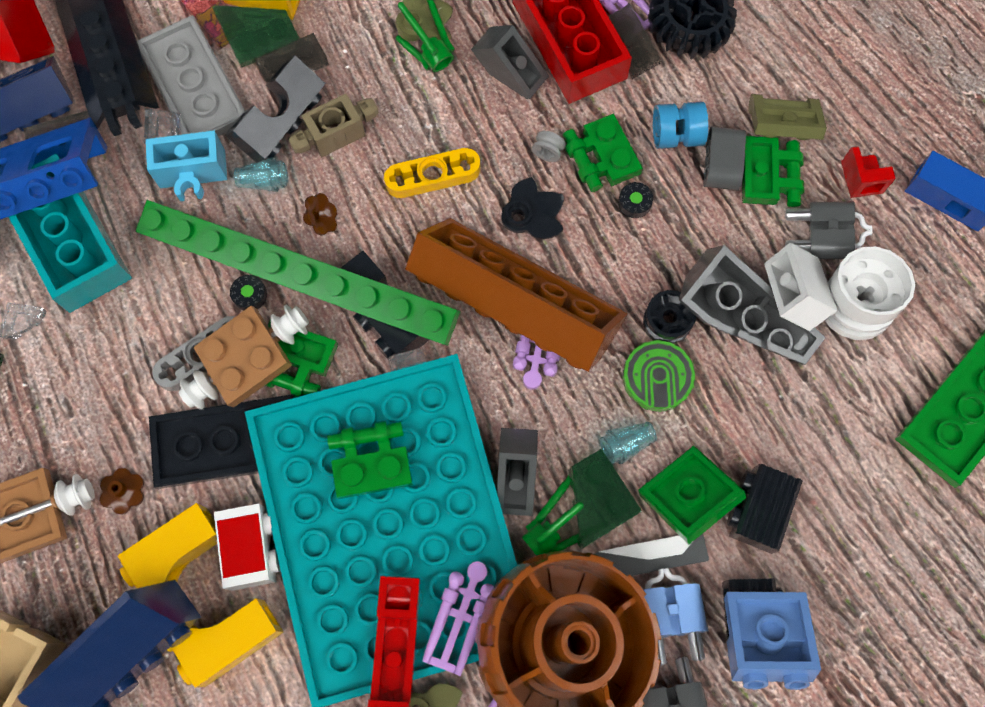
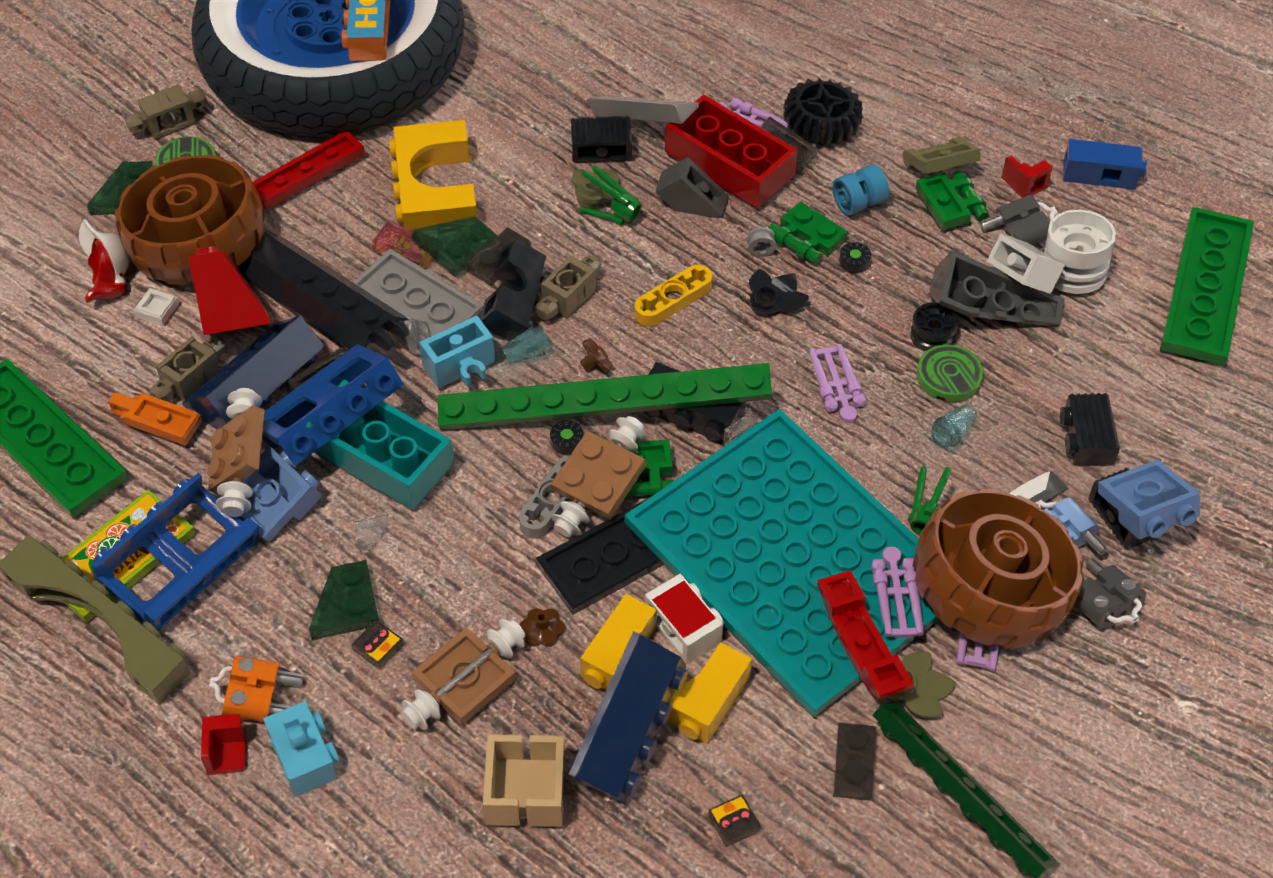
camera: 25 degrees left, 20 degrees down
(369, 471) = (760, 516): green plate -> none
(515, 292) = (801, 350): dark orange slope -> none
(517, 470) = (878, 472): dark grey slope -> none
(604, 498) = (966, 471): clear green wing -> none
(691, 494) = (1027, 439): green tile -> none
(724, 158) = (910, 202): dark grey beam -> none

